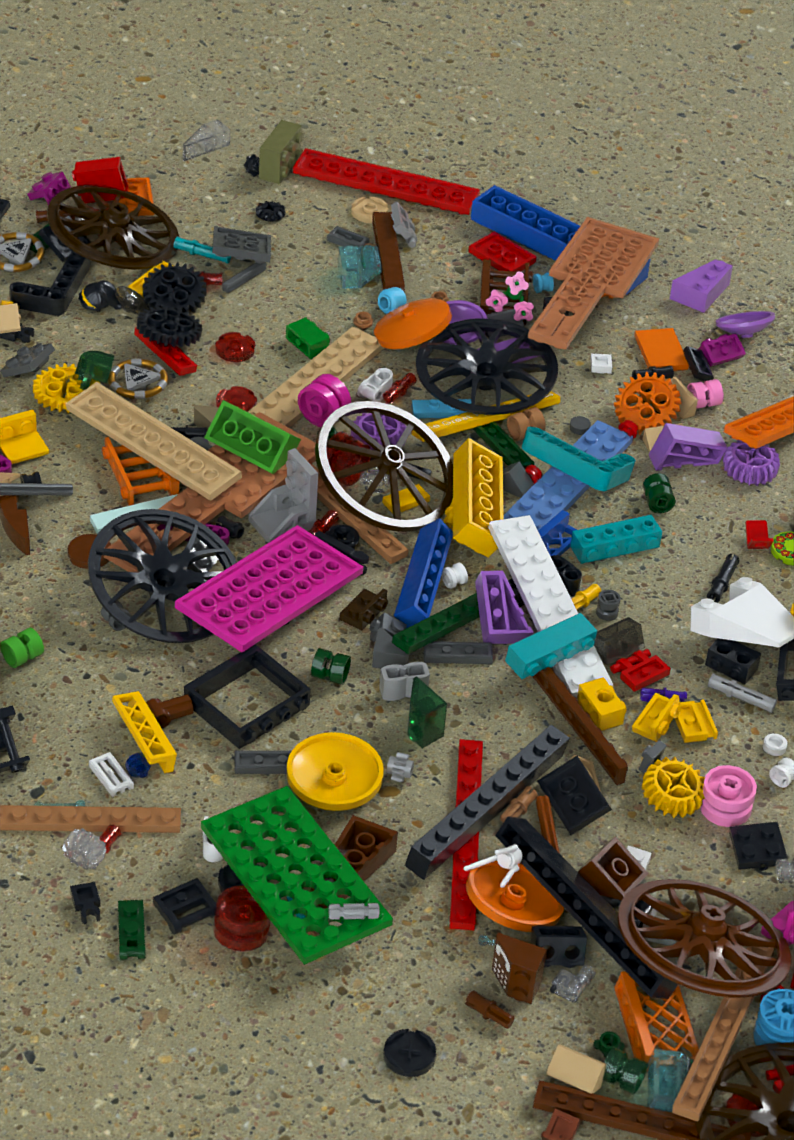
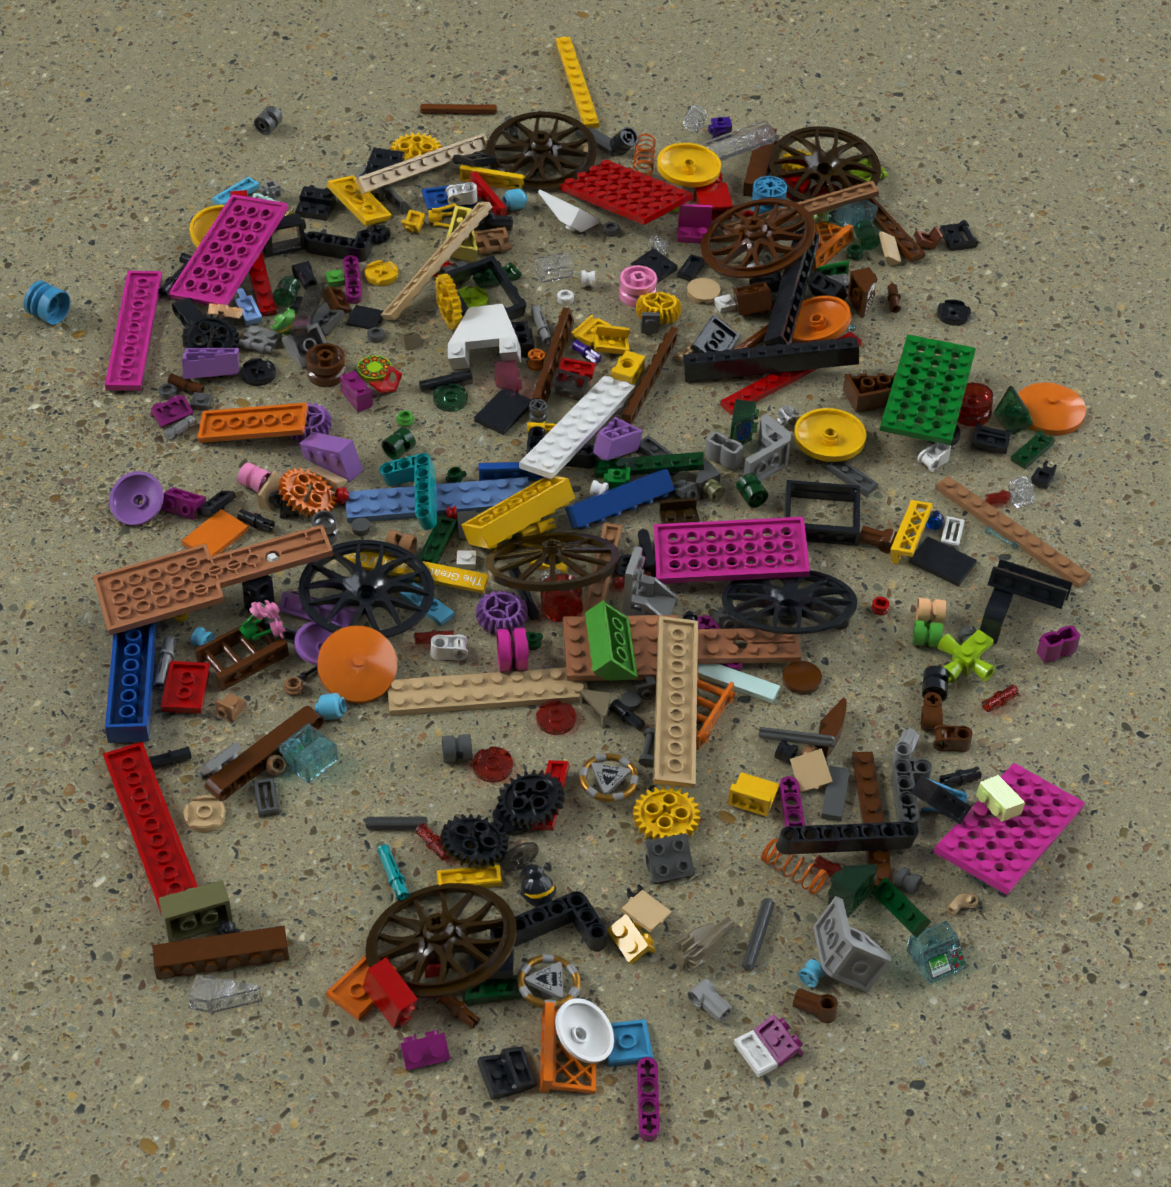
camera: 130 degrees left, 5 degrees up
(43, 668) = (930, 610): none -> light nougat wheel
(87, 737) = (943, 561): none -> black tile
(94, 366) = (640, 797): clear green brick -> none
(99, 658) = (881, 601): none -> red bush
(167, 1001) = (1053, 408): none -> orange dish
(190, 945) = (1012, 412): none -> clear green slope
(231, 159) = (220, 952): none -> reddish brown brick
(241, 244) = (366, 839): dark grey plate -> none
(265, 211) = (283, 881): black gear -> none
(268, 329) = (457, 748): none -> dark grey wheel
(307, 337) = (436, 722): green brick -> none
(353, 911) = (929, 340): light grey axle -> none
(363, 320) = (372, 711): medium nougat plate -> none
(364, 646) = (714, 490): none -> olive wheel
(375, 714) = (773, 449): none -> light grey bracket
(439, 217) = (170, 757): none -> black axle
(452, 592) = (617, 477): none -> green brick
(455, 262) = (230, 707): none -> medium nougat bracket
(506, 857) = (802, 327): white plant -> none
(544, 260) = (165, 656): none -> light grey pin
(551, 646) = (623, 394): teal brick -> none
(580, 508) = (455, 475): none -> dark green plate
(594, 395) = (328, 520): none -> flat silver wheel
(597, 993) = (835, 268): none -> green slope
(616, 539) = (468, 440): teal brick -> none
(639, 592) = (503, 411): none -> black tile
(675, 615) = (507, 375): none -> clear pink slope
(675, 858) = (703, 290): none -> tan tile
(683, 669) = (554, 355): none -> reddish brown plate
(689, 654) = (536, 359): none -> orange wheel
(694, 524) = (405, 418): none -> bright green plate
(696, 572) = (450, 397): none -> clear green tile
(701, 286) = (103, 547): medium lavender wedge -> none
(726, 876) = (691, 268): none -> black tile
(764, 507) = (356, 391): none -> magenta brick

